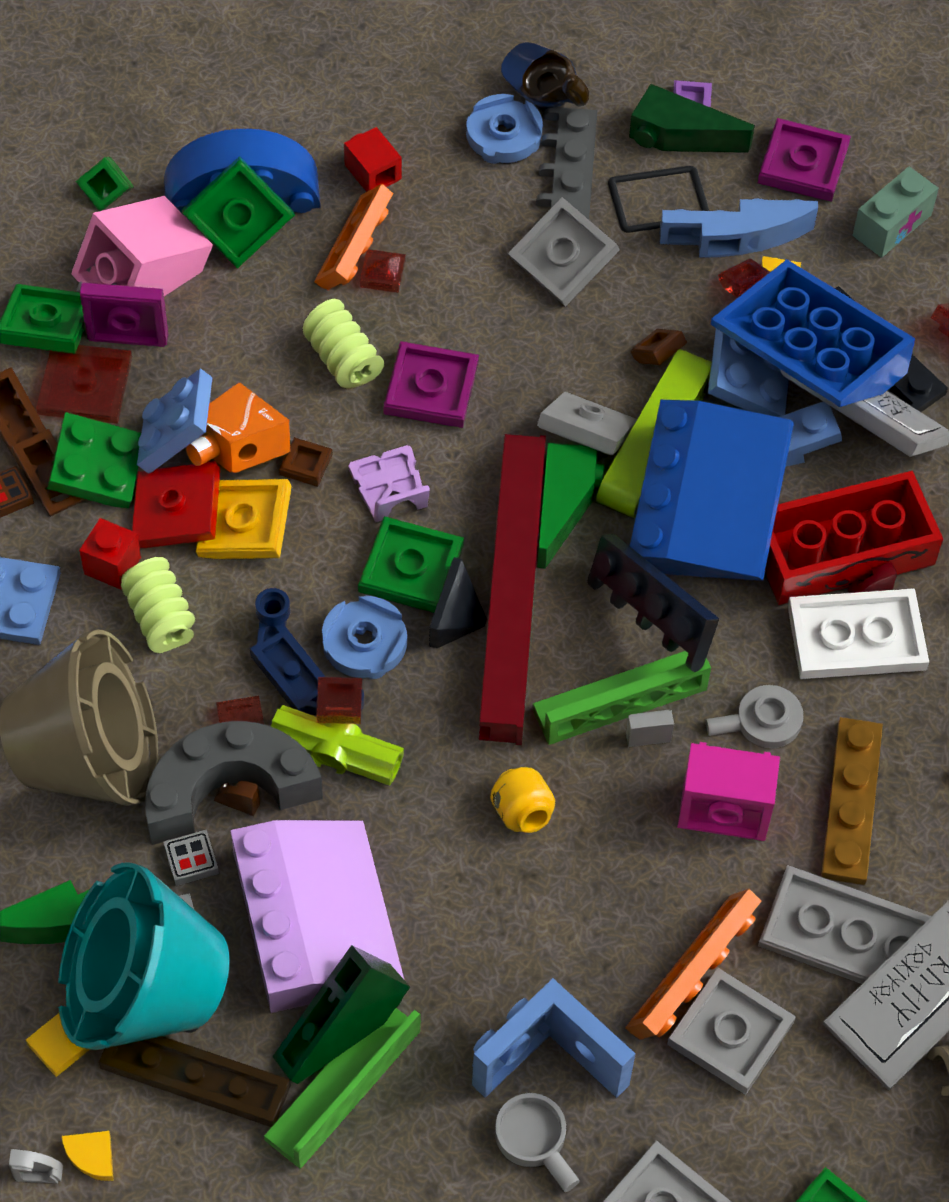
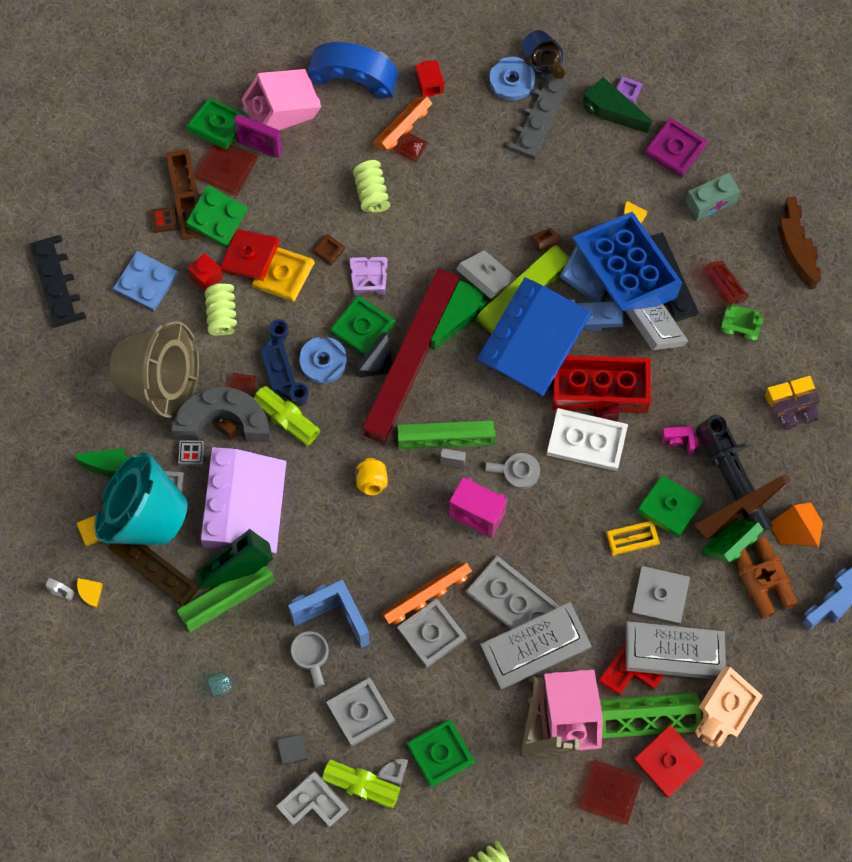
camera: 20 degrees right, 10 degrees up
(104, 183) = (277, 49): green slope -> none
(174, 420) = (263, 207): medium blue plate -> none
(238, 212) = (340, 92): green plate -> none
(241, 432) = (295, 223): orange torso -> none
(339, 700) = (293, 394): clear red tile -> none
(431, 384) = (412, 224): magenta plate -> none
(563, 251) = (514, 166): light grey plate -> none
(651, 174) = (591, 131): black piece -> none
(655, 598) = (480, 388): black hinge -> none
(742, 277) = (611, 211): clear red tile -> none
(753, 228) = (629, 182): medium blue slope -> none
(852, 801) = (546, 531): pearl gold plate -> none

